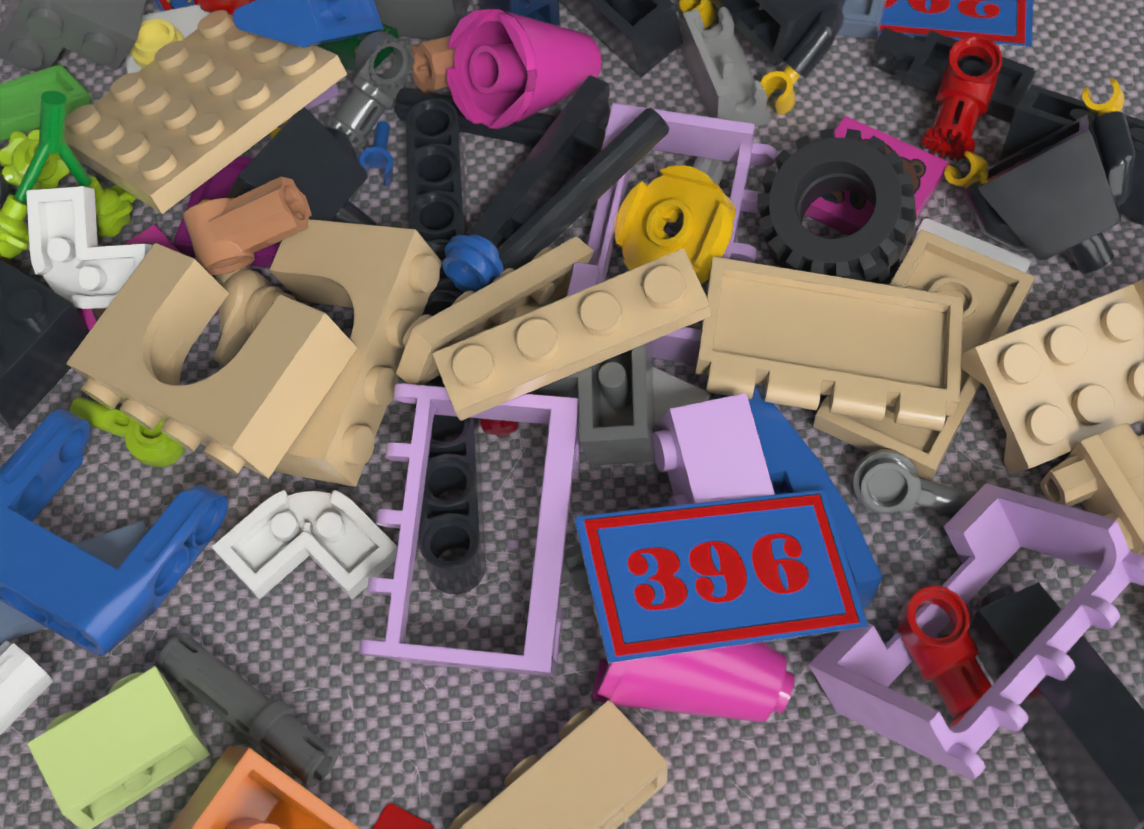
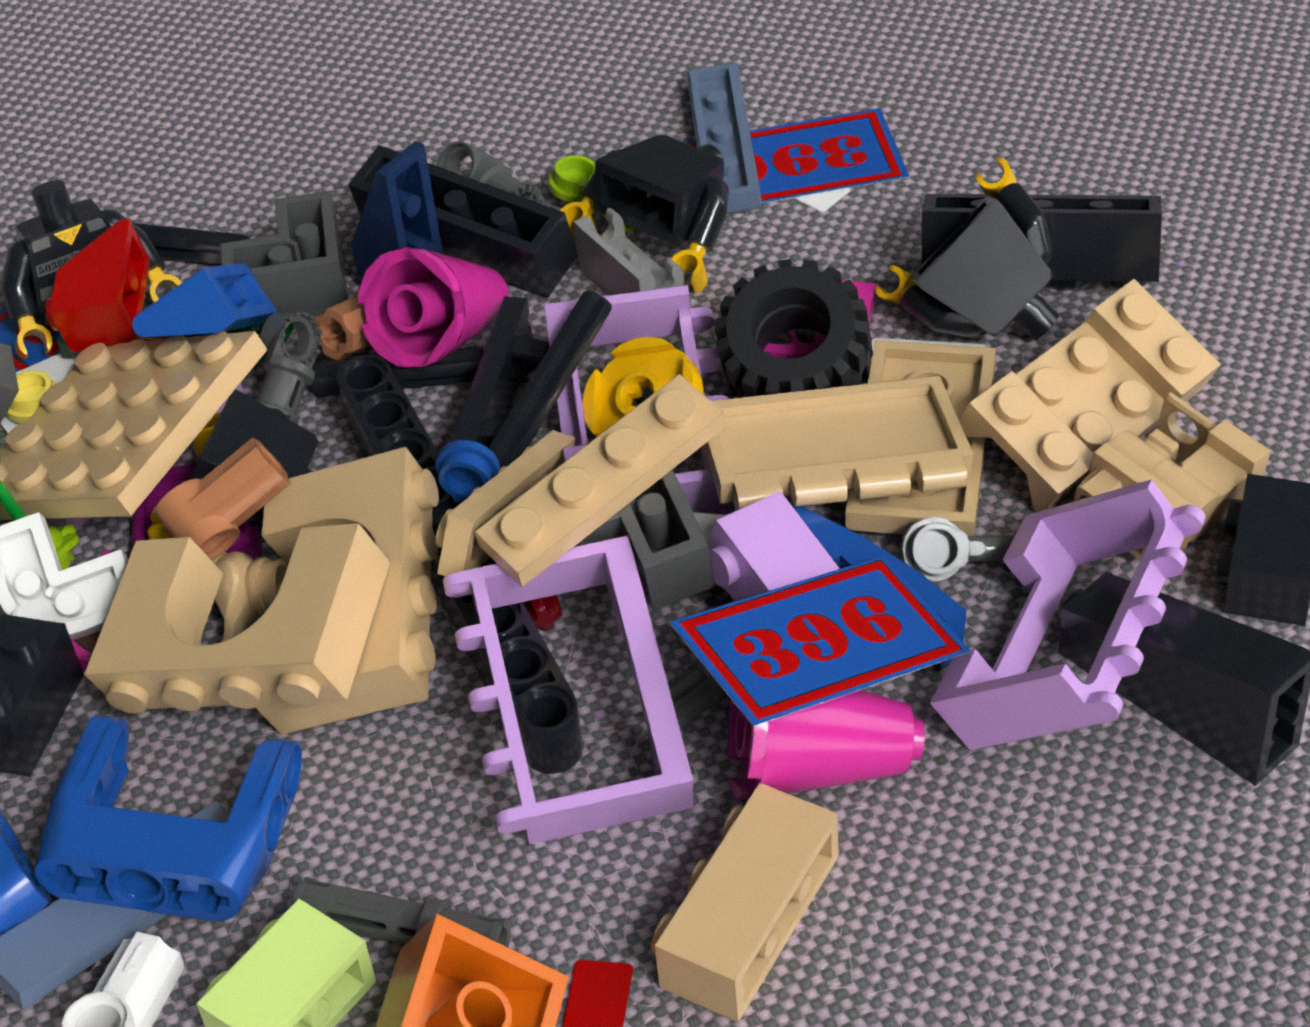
camera: 20 degrees left, 15 degrees down
(145, 445) = (185, 734): lime plate -> none
(303, 525) = (373, 762): white plate -> none
(378, 155) = (319, 426): blue hand -> none
(923, 60) = (847, 210): black hinge -> none
(948, 660) = (1036, 655): red connector -> none
(971, 90) = (857, 216): red connector -> none

